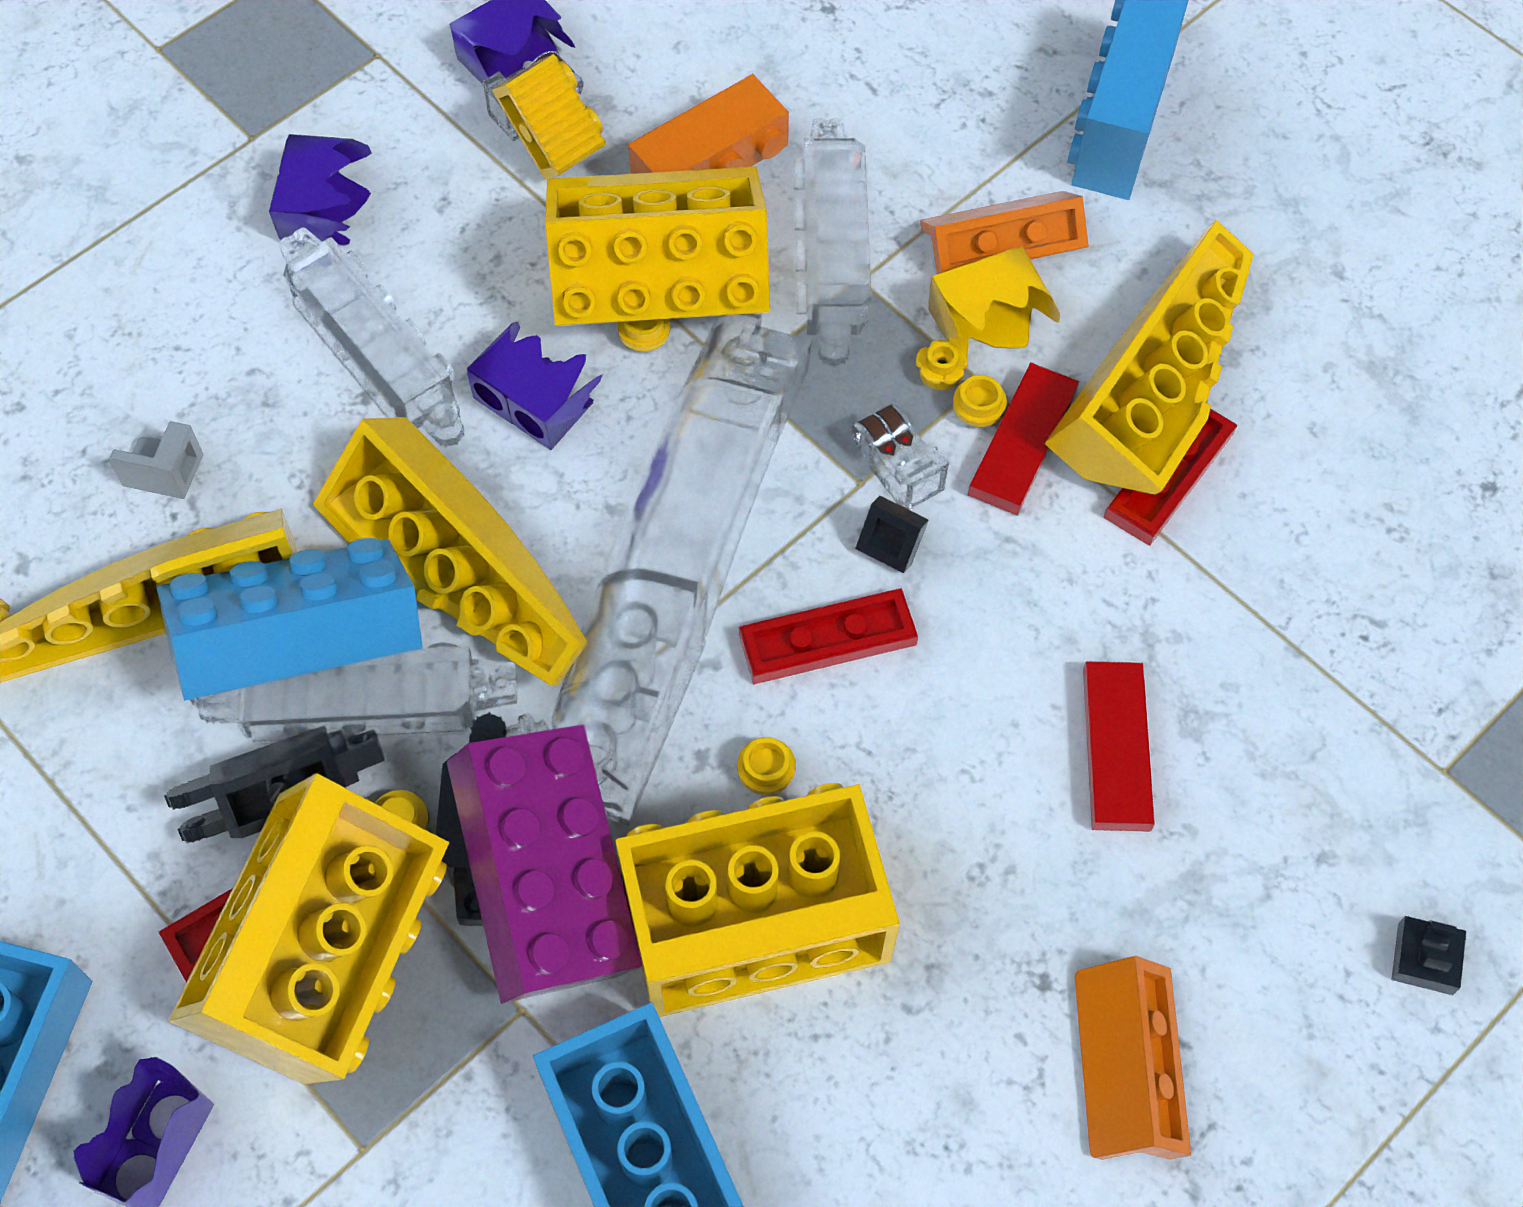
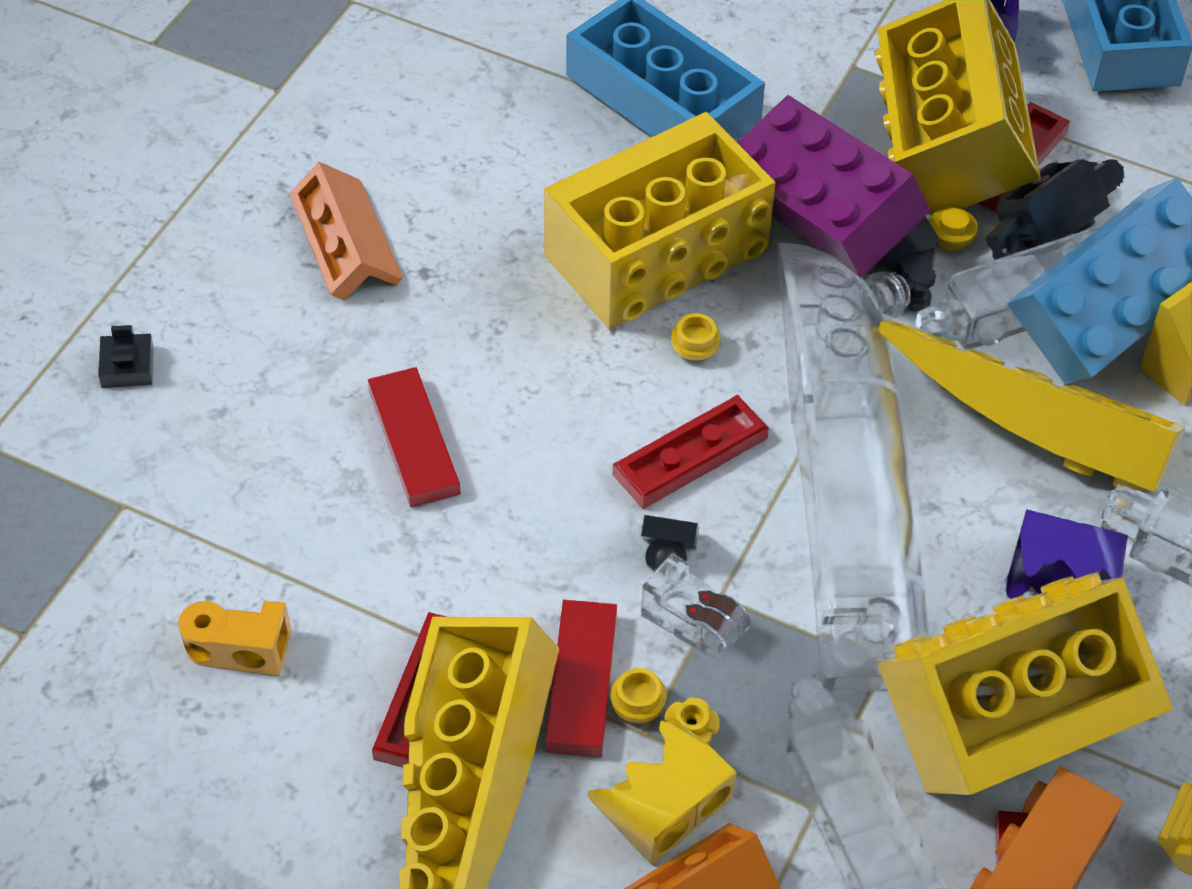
camera: 160 degrees right, 10 degrees down
(1350, 562) = (235, 637): none -> light orange leg

